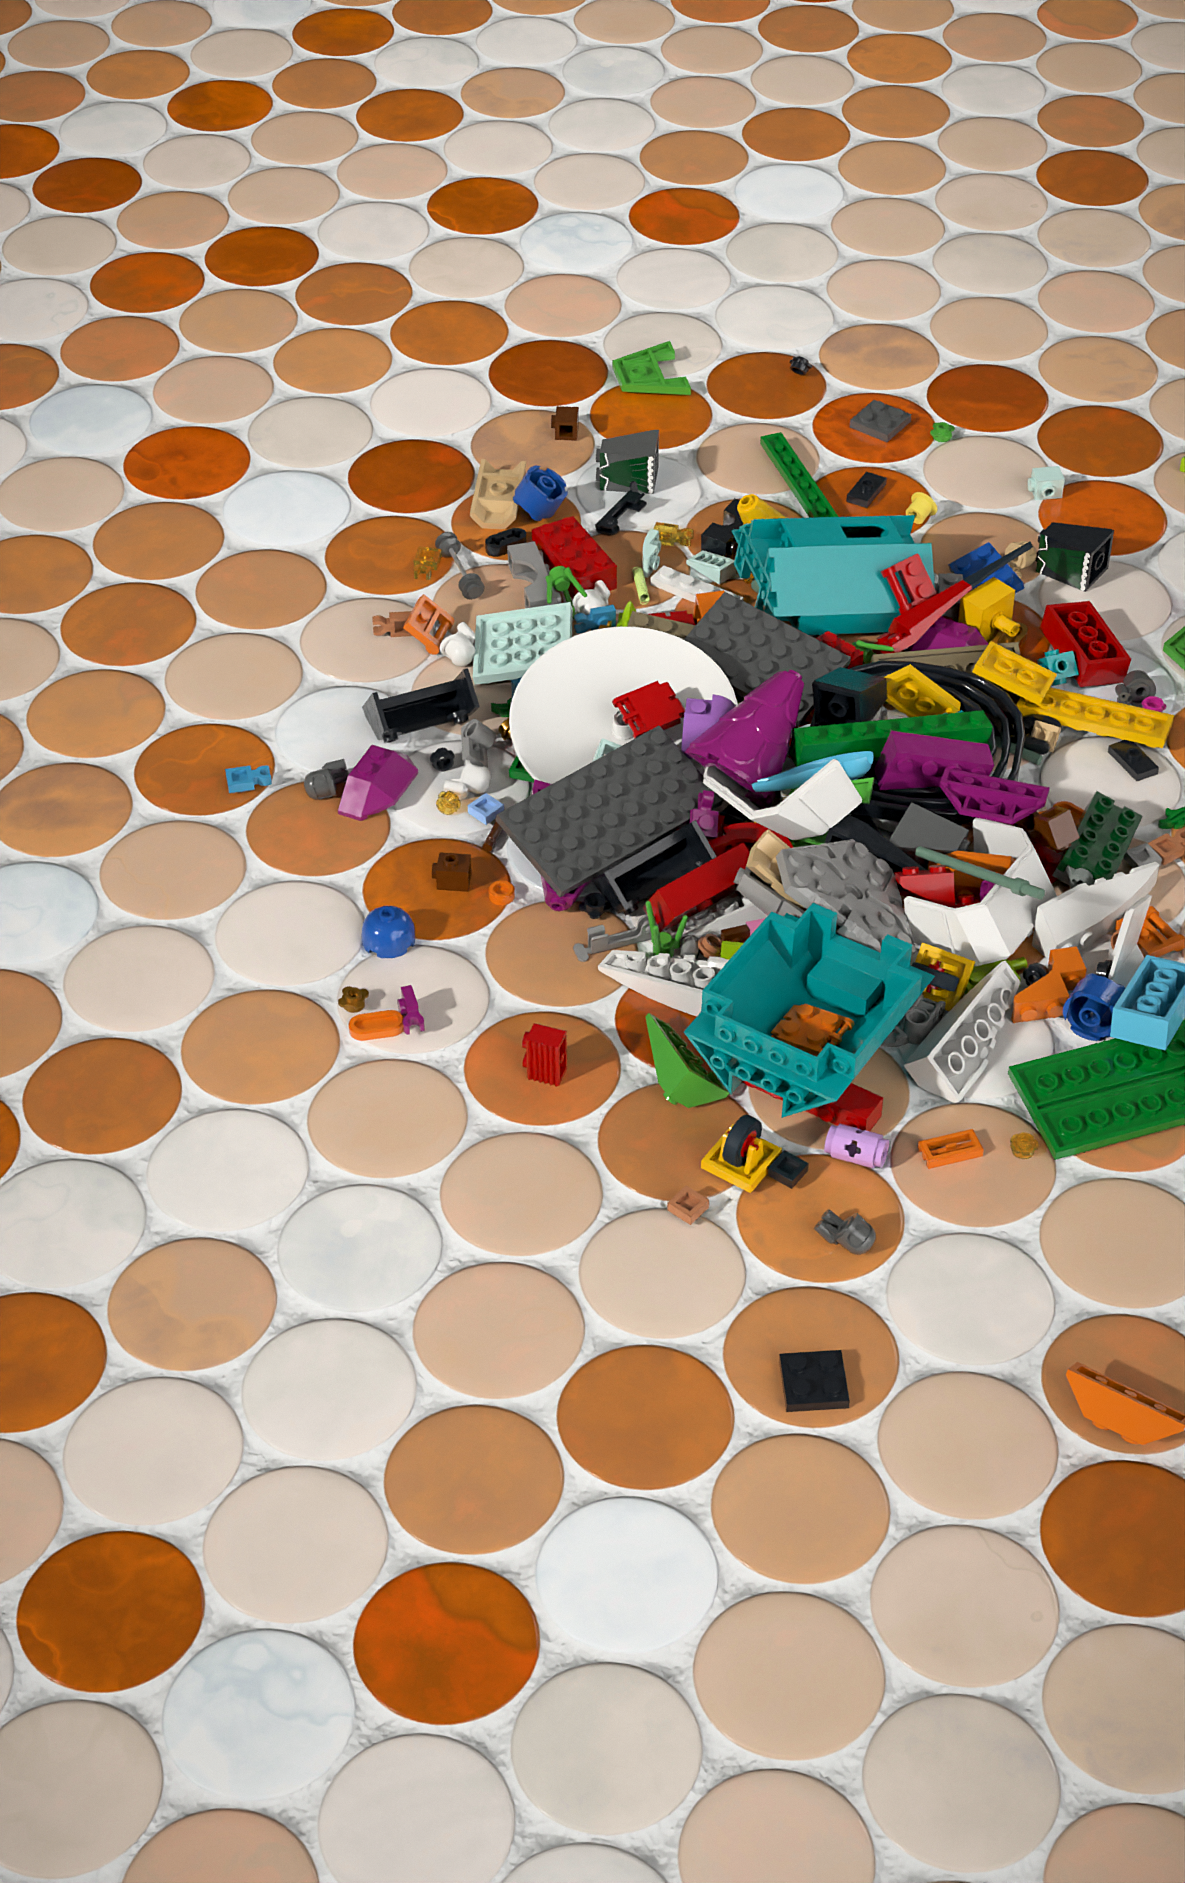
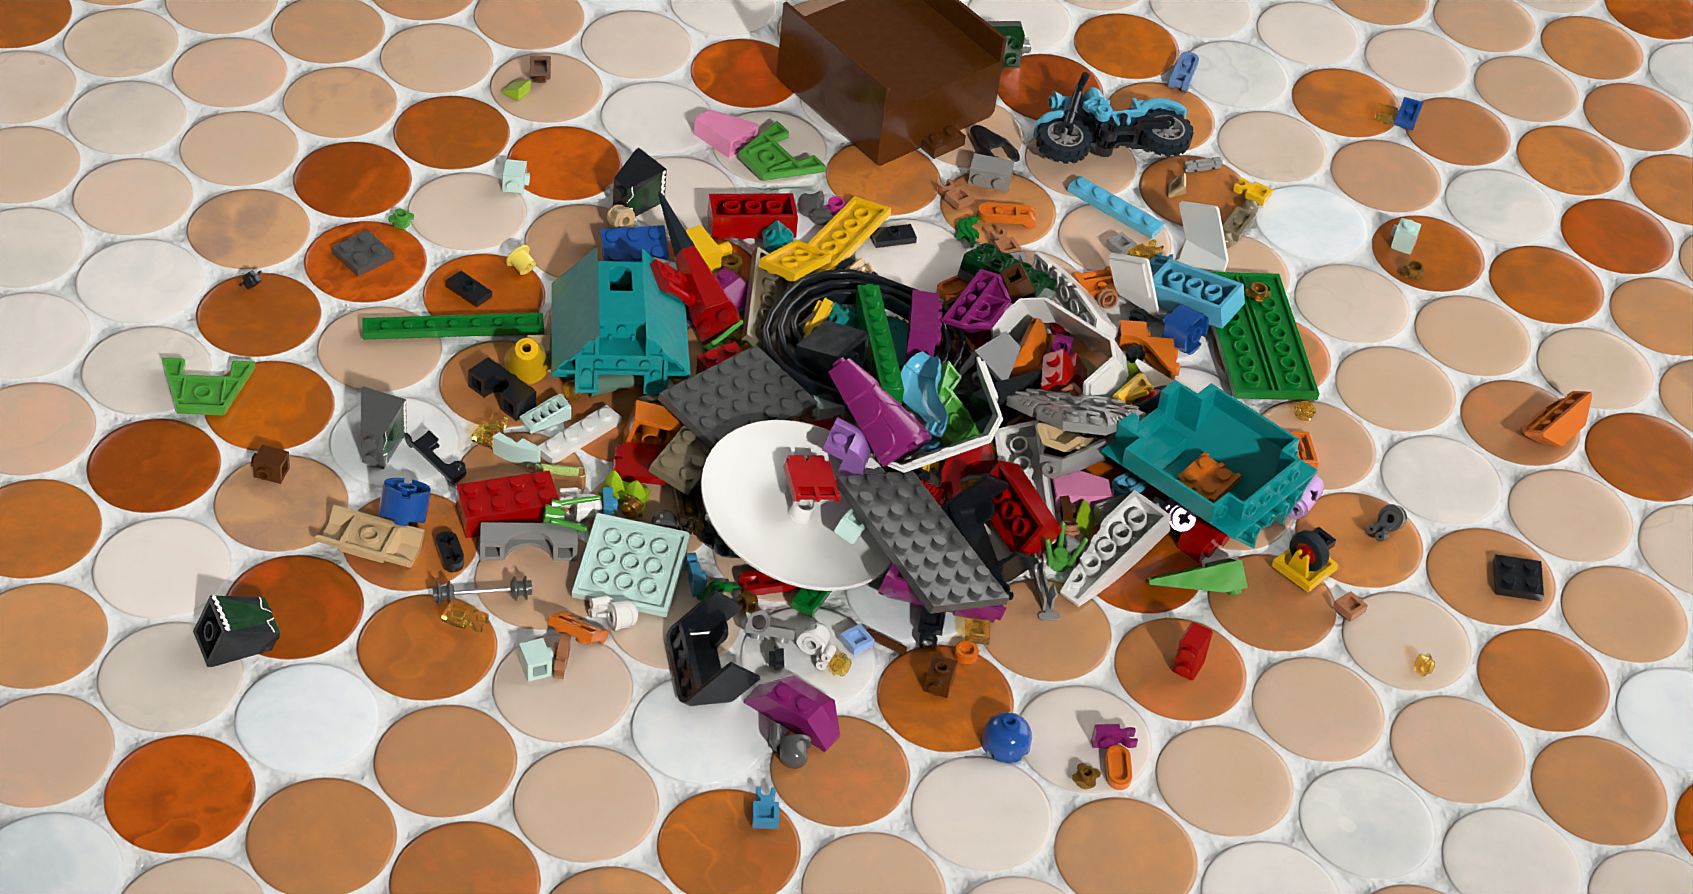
camera: 85 degrees left, 0 degrees up
(360, 441) = (235, 629): none -> black slope
(383, 604) = (536, 659): none -> light aqua brick
(518, 860) = (930, 626): none -> black plate
(529, 893) = (977, 631): none -> clear yellow plate
(616, 1282) = (1424, 664): none -> clear yellow plate
(704, 816) = (938, 487): magenta plate -> none
(1018, 885) = (1106, 312): sand green bar -> none

